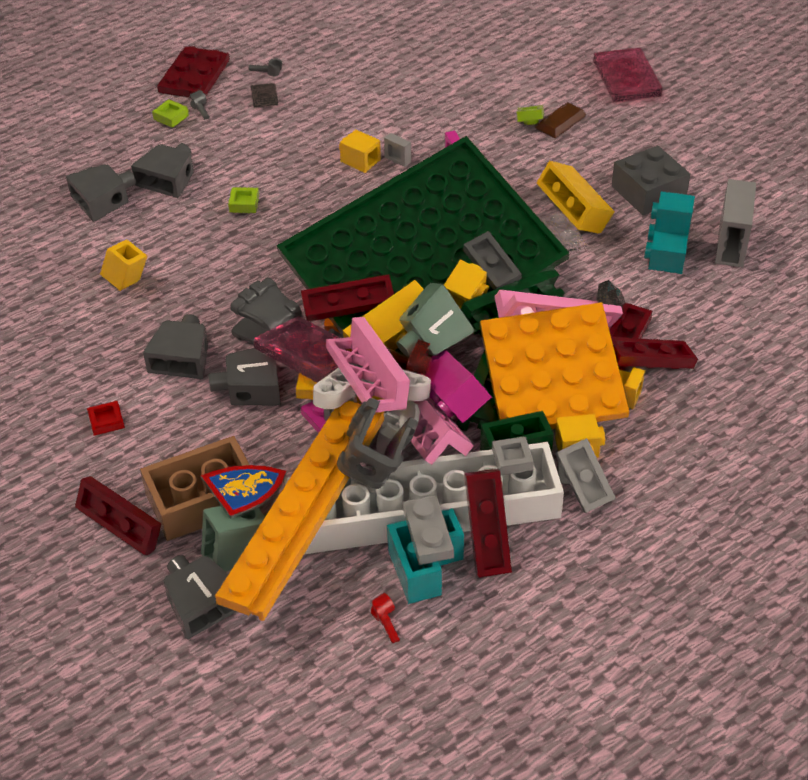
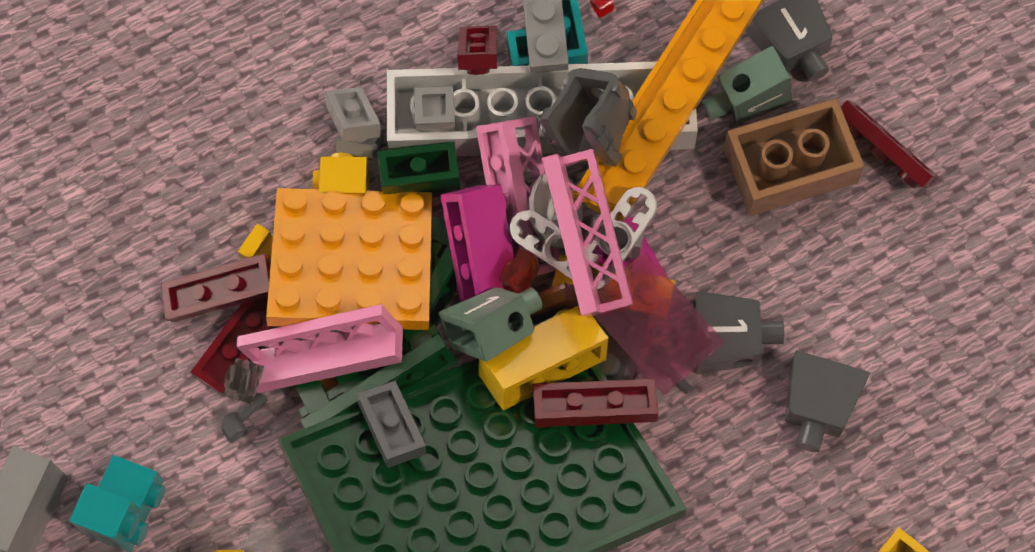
camera: 170 degrees left, 25 degrees up
(105, 418) = (912, 305): red tile -> none
(243, 487) = (743, 115): shield -> none
(263, 309) = (705, 420): dark grey piece -> none
(466, 282) = (435, 390): yellow brick -> none

